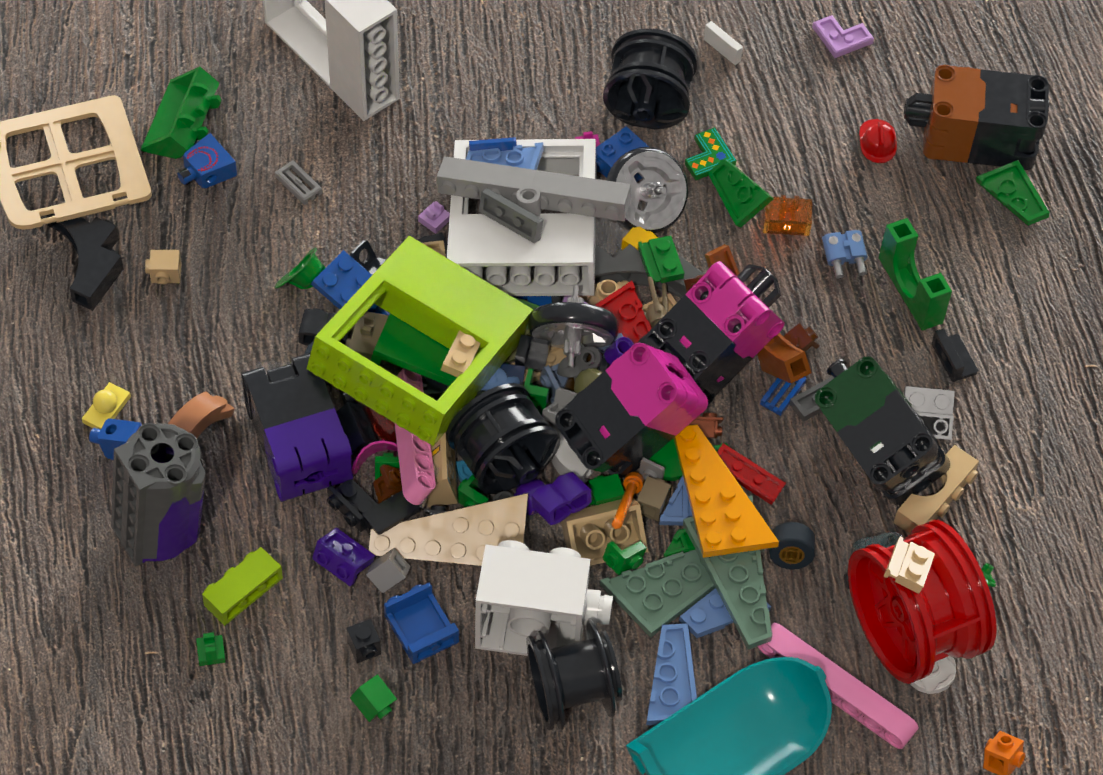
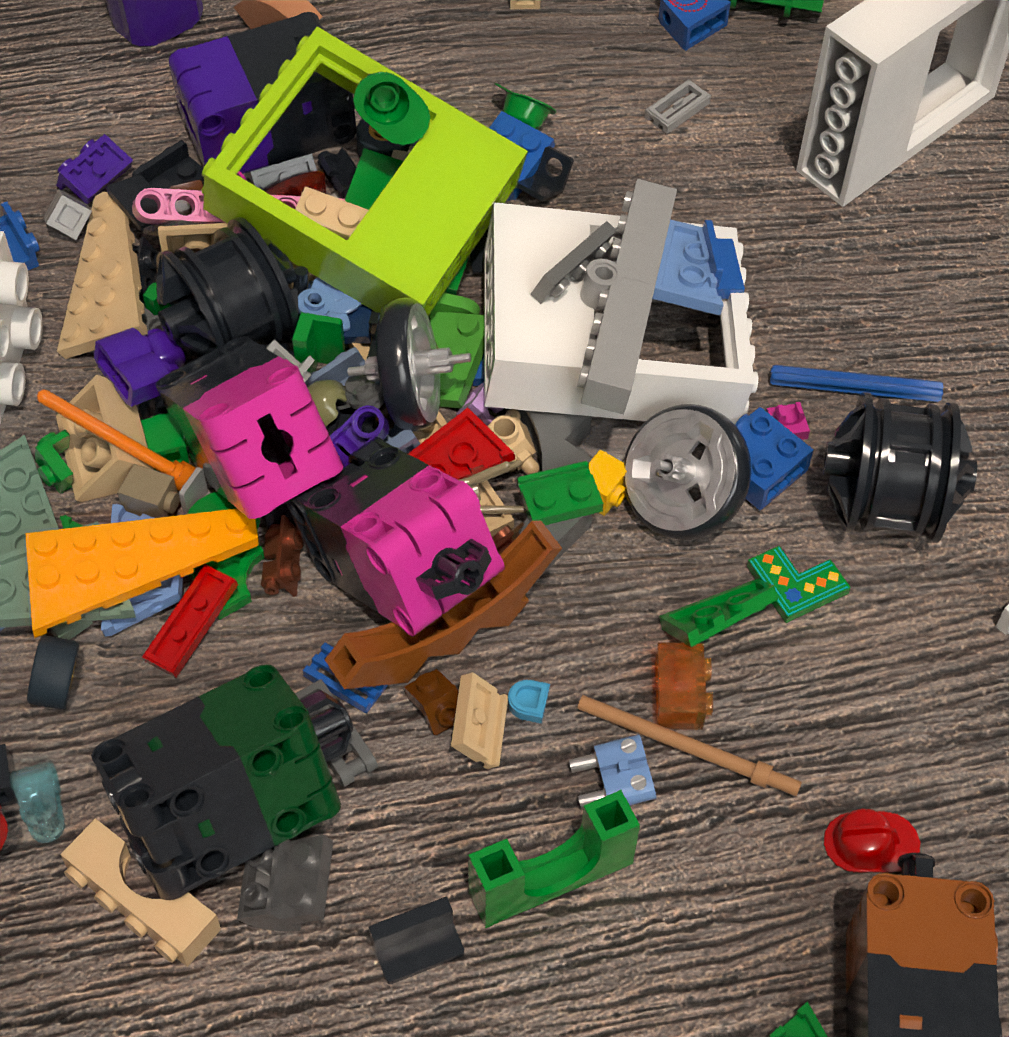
camera: 90 degrees right, 0 degrees up
(242, 585) = (59, 80): lime brick -> none
(390, 296) = (392, 108): none -> green piece
(558, 100) = (856, 383): none -> blue axle
(795, 296) = (528, 700): none -> dark azure tile
(807, 315) = (479, 721): none -> tan plate
(840, 186) = (760, 773): none -> medium nougat bar

